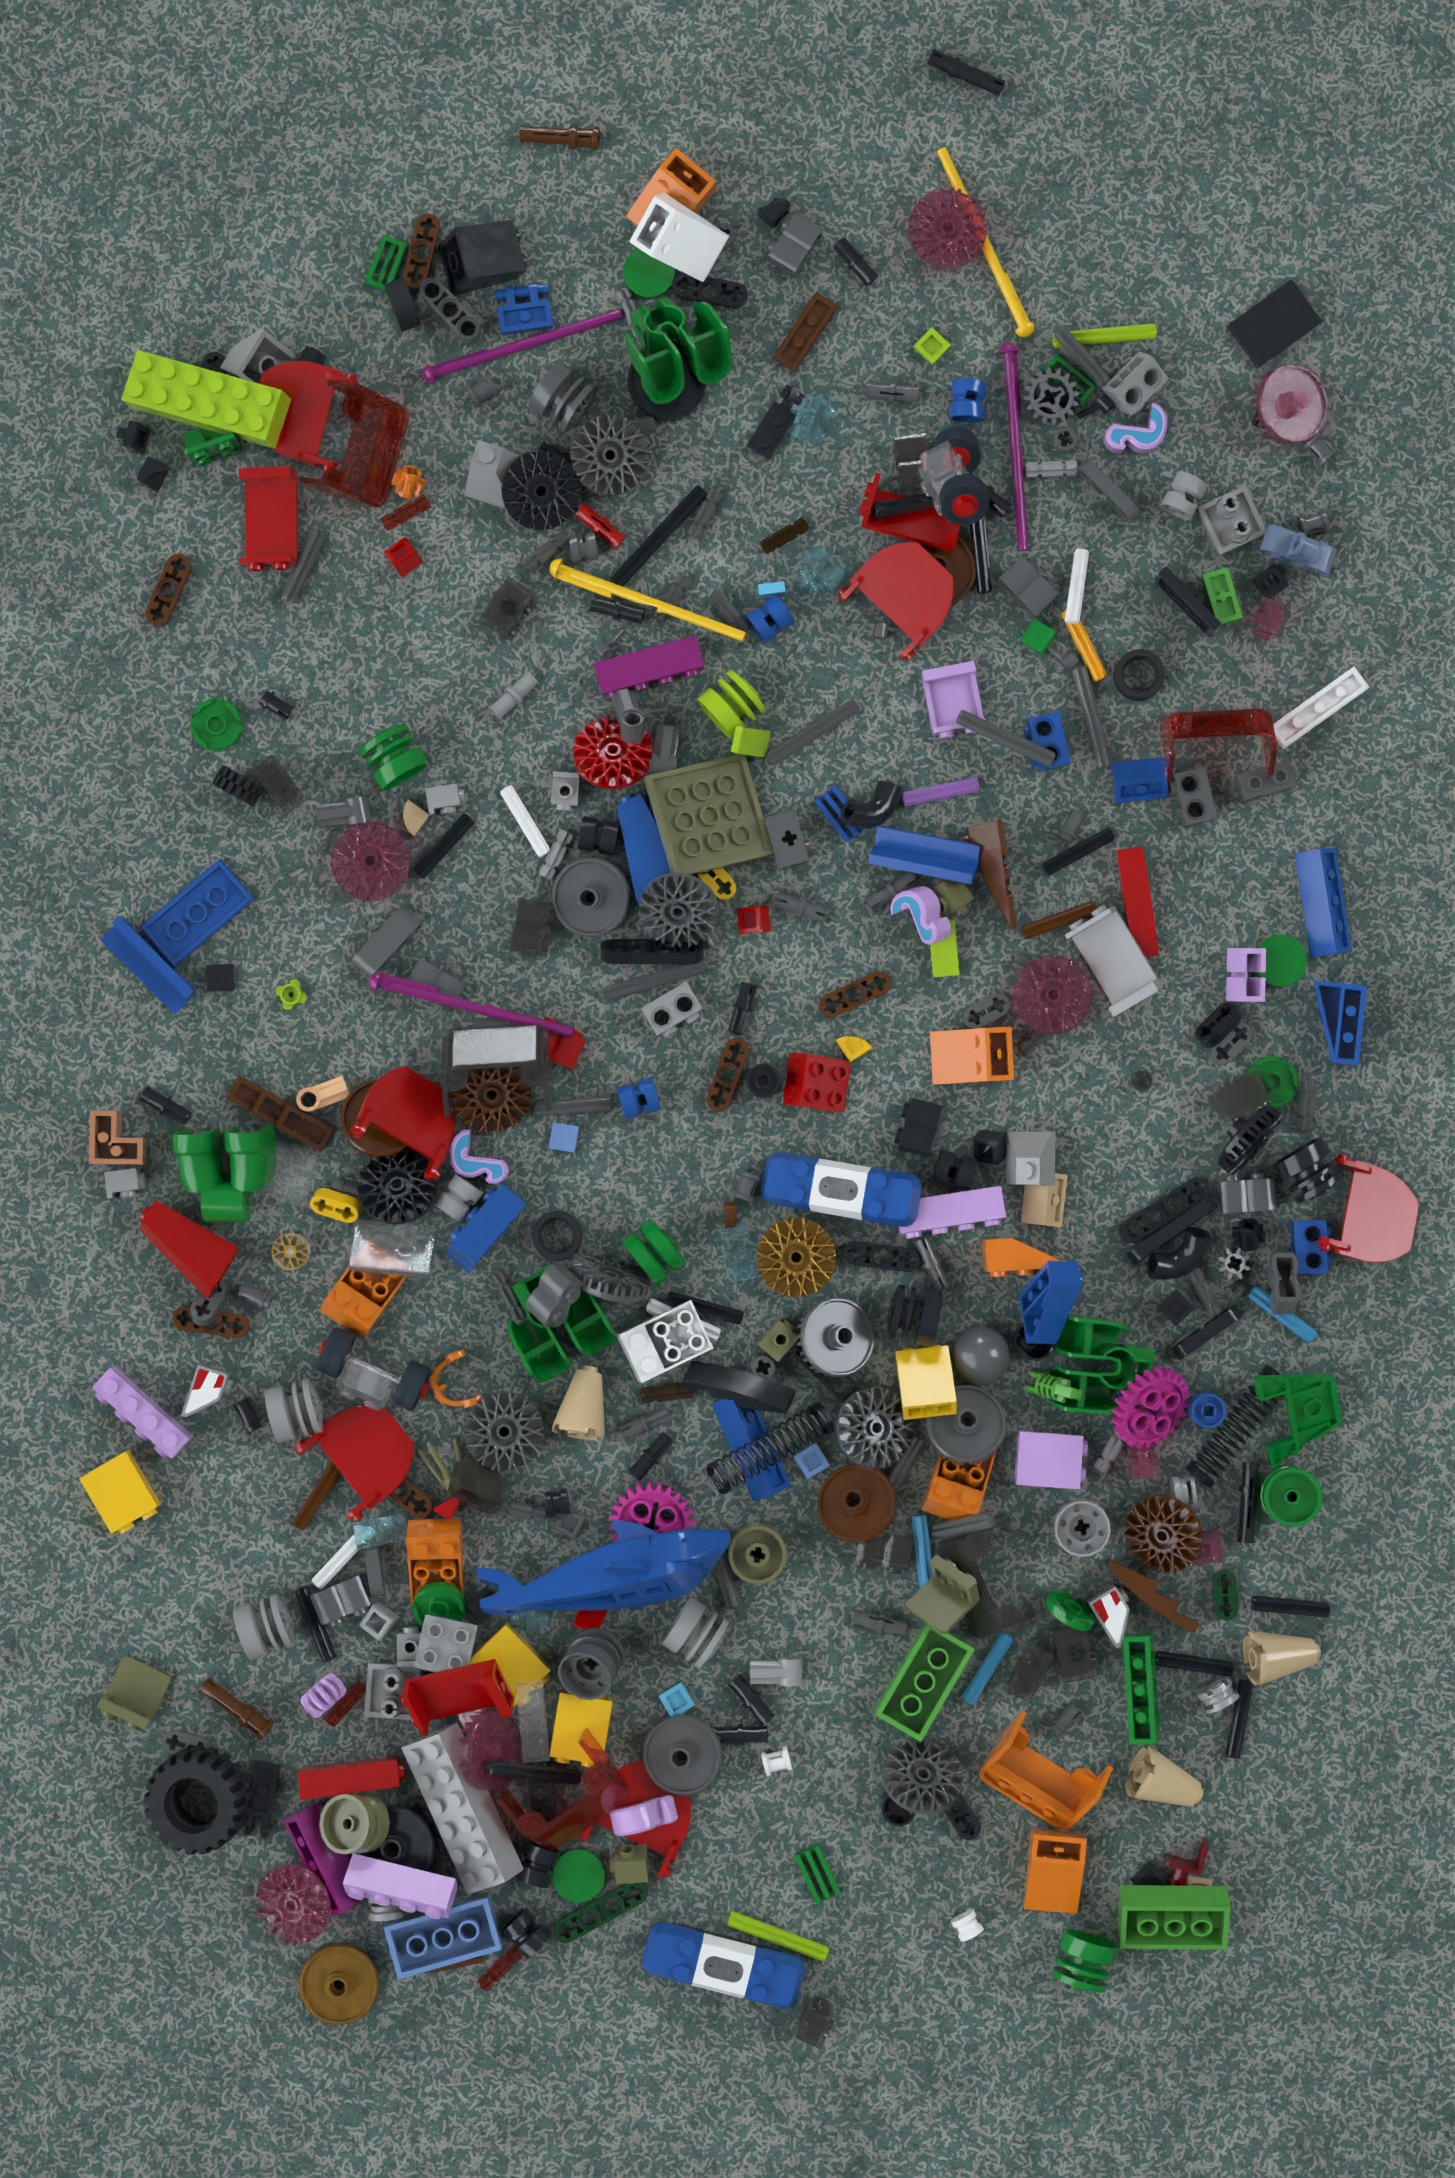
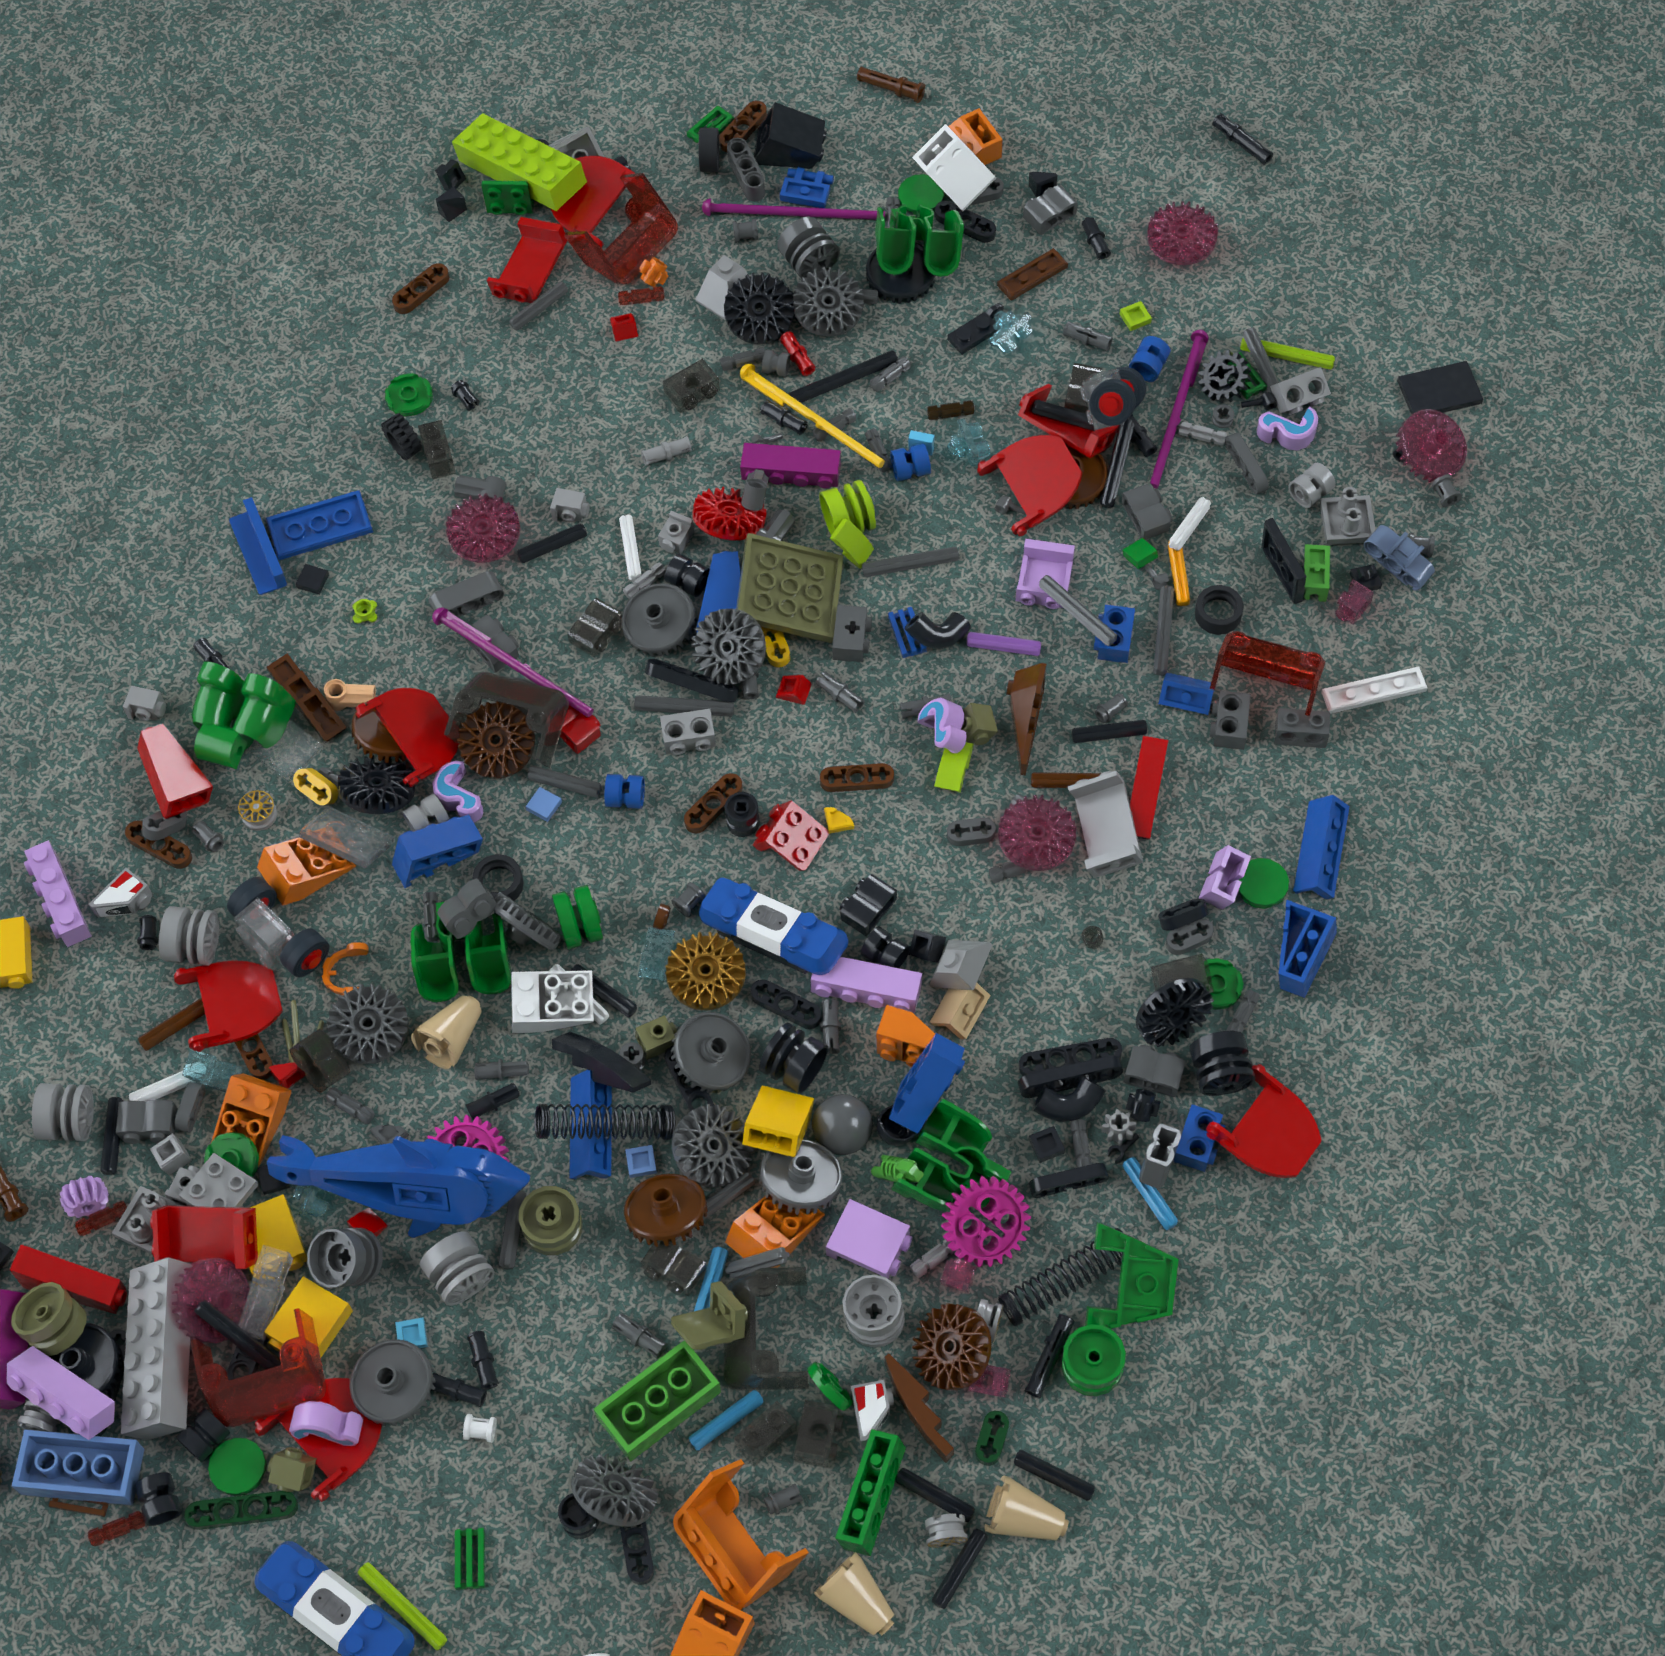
camera: 25 degrees right, 25 degrees down
(107, 1144) = (150, 666): nougat brick -> none
(391, 753) = (541, 456): green wheel -> none
(414, 817) = (537, 514): tan tile -> none
(557, 1502) = (386, 1108): black wheel -> none
(665, 1393) = (533, 1051): dark brown axle -> none
(742, 1008) = (751, 753): black axle -> none
(781, 1671) = (525, 1344): light grey piece -> none
(925, 854) = (969, 680): blue panel -> none
(972, 1055) = (944, 860): orange slope -> none
(1025, 327) = (1220, 324): yellow bar -> none
(1206, 1409) = (1040, 1248): blue wheel -> none

